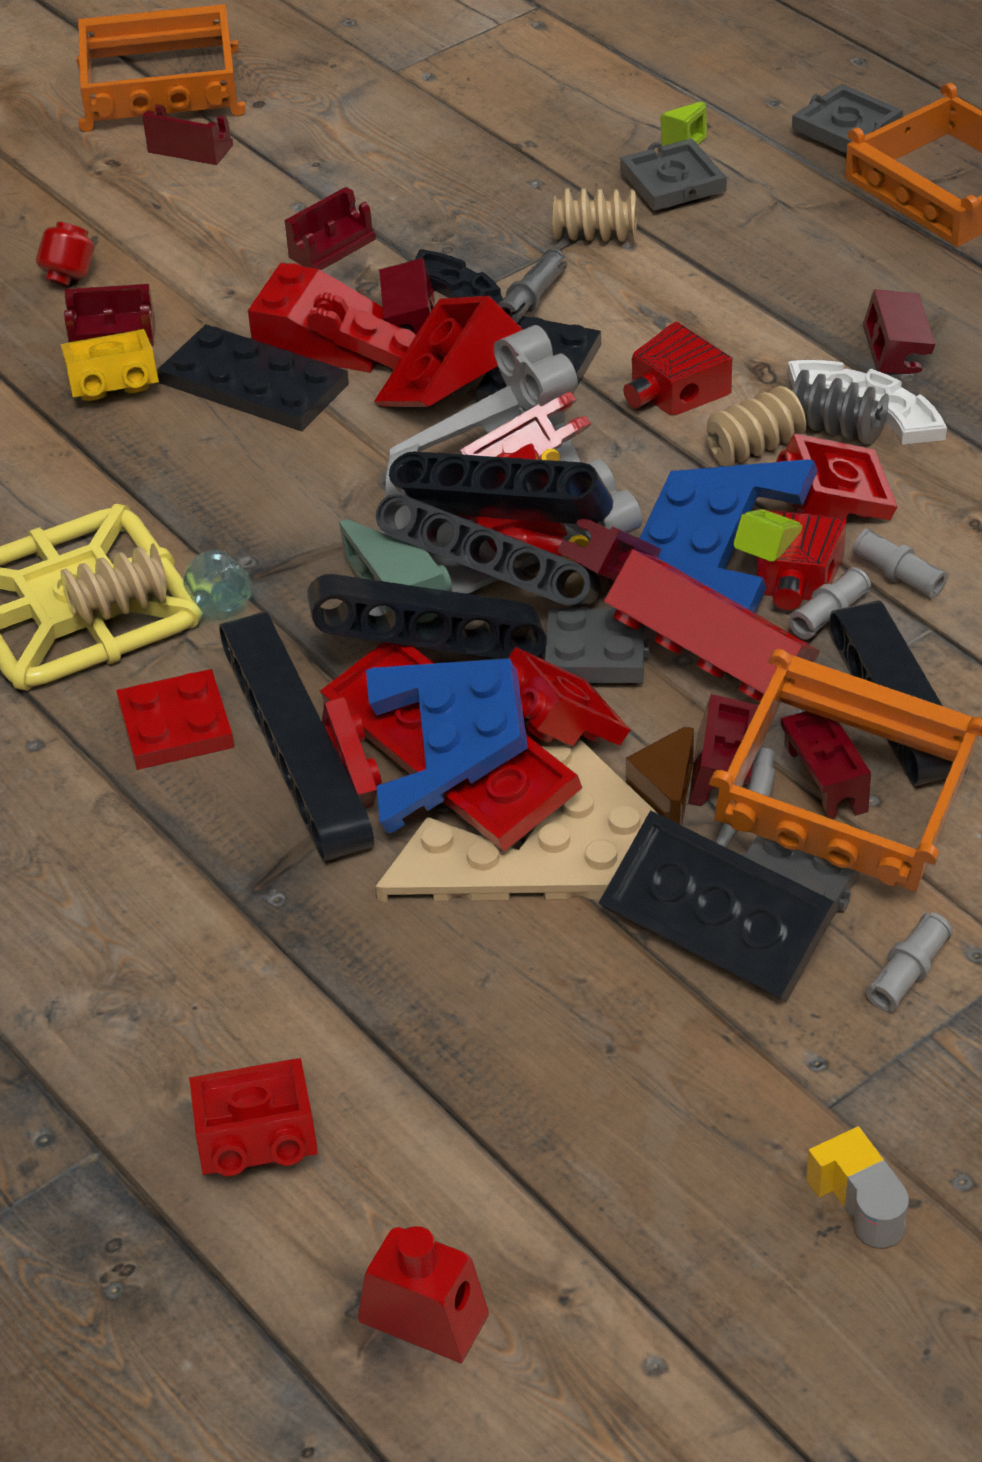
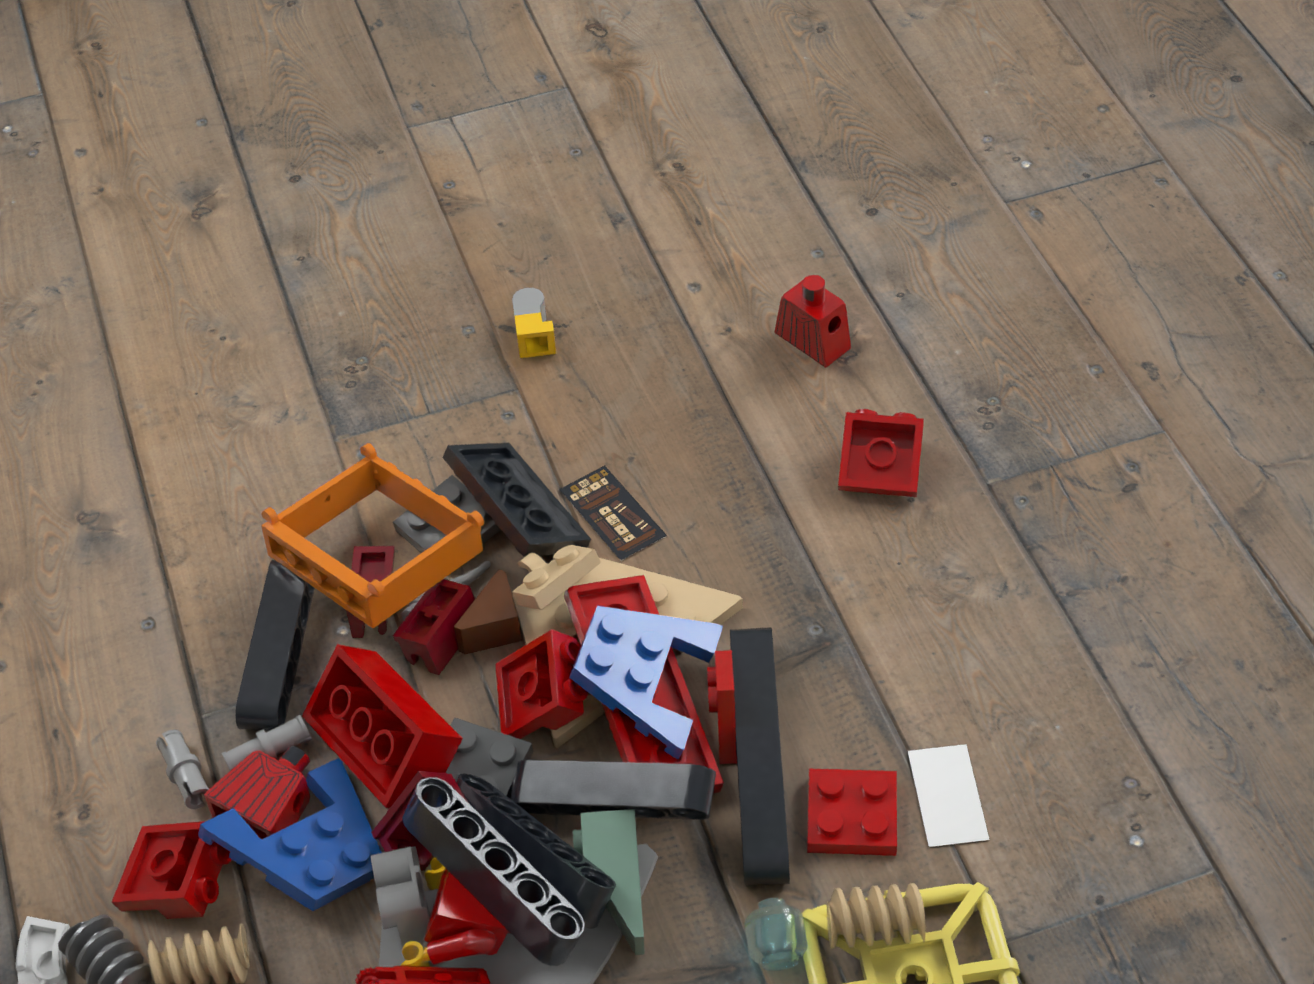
camera: 160 degrees left, 5 degrees up
(75, 770) = (948, 795): none -> white sticker
(597, 969) = (613, 512): none -> black sticker
(599, 788) = (550, 580): none -> tan plate
(765, 534) = (281, 789): lime slope -> none
(909, 961) = (414, 442): light grey pin -> none

